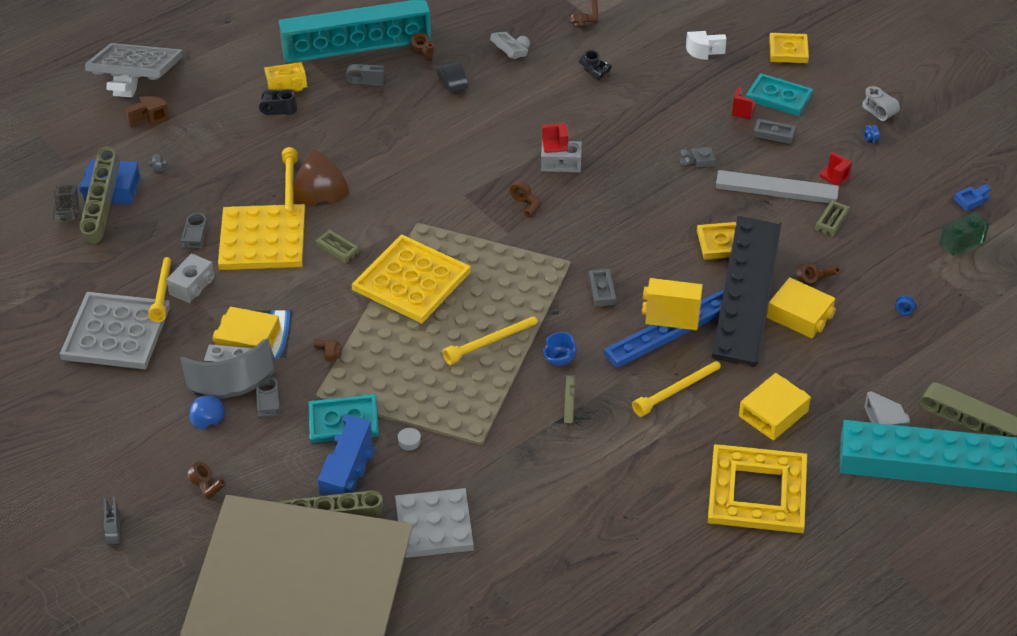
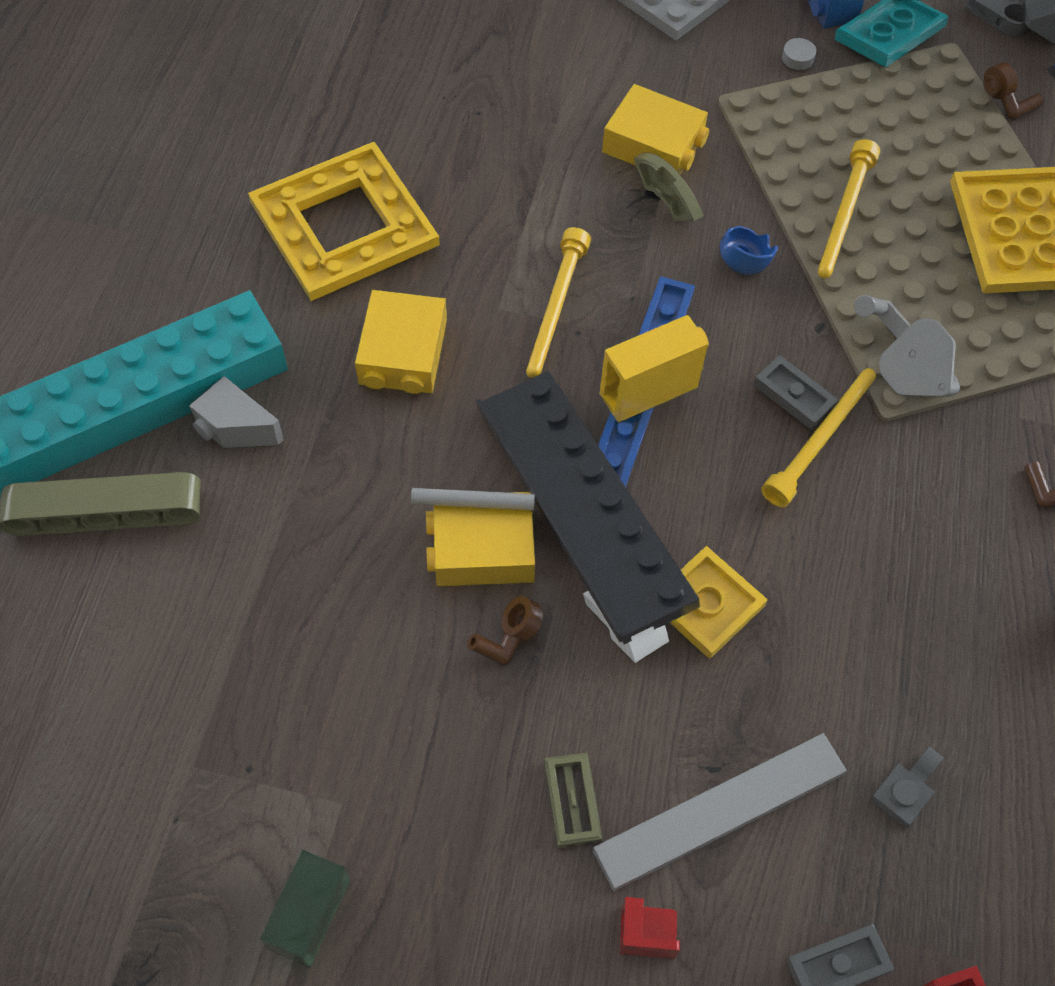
camera: 140 degrees right, 15 degrees up
(538, 252) = (919, 358): none -> light grey piece
(543, 435) = (655, 126): none -> yellow brick
(647, 259) = (781, 487): none -> yellow piece
(799, 309) = (472, 499): none -> light grey bar
(905, 305) = (324, 663): blue plate -> none

